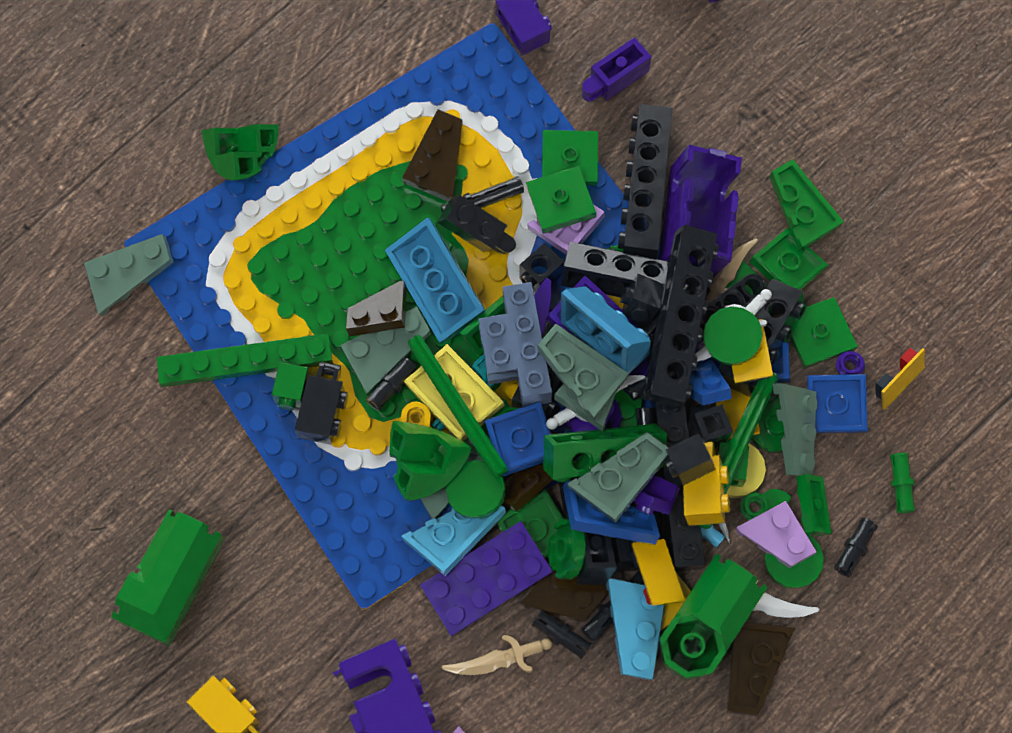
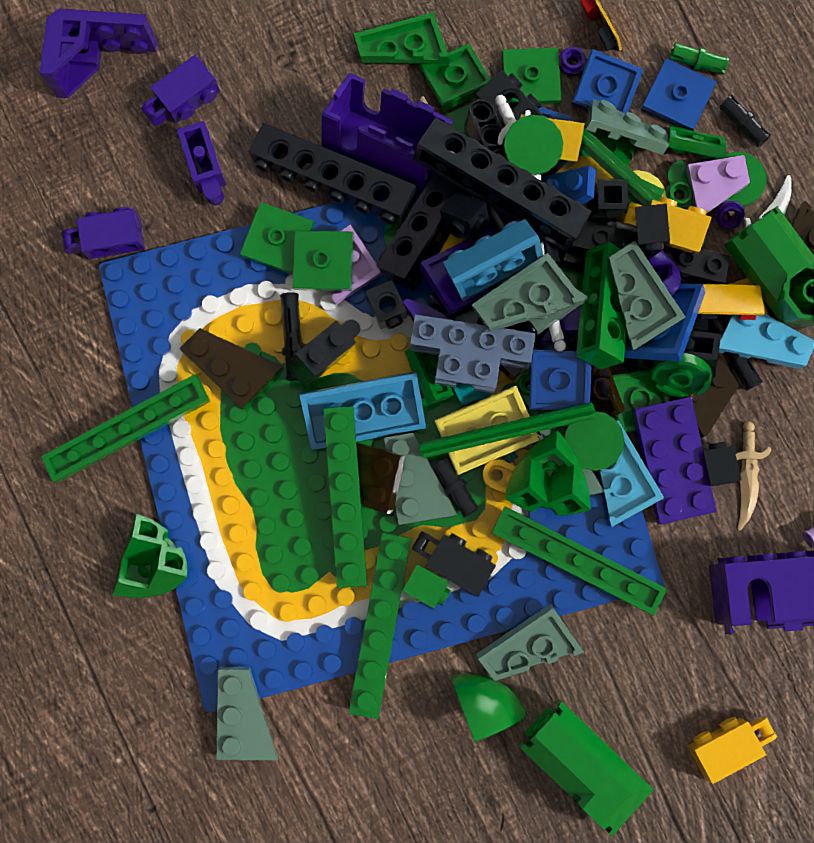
camera: 70 degrees left, 10 degrees up
(200, 473) = (487, 704): none -> green brick
(268, 499) = (532, 642): none -> sand green wing
(350, 289) = (345, 497): none -> green plate
(351, 91) = (125, 429): none -> green plate
(359, 516) = (579, 561): none -> green plate
(497, 624) = (722, 464): none -> black brick
(561, 634) = (745, 409): black pin -> none
(676, 34) = (181, 92): none -> dark purple brick
(747, 557) = (733, 221): none -> dark purple plate
(857, 476) = (678, 95): none -> blue plate

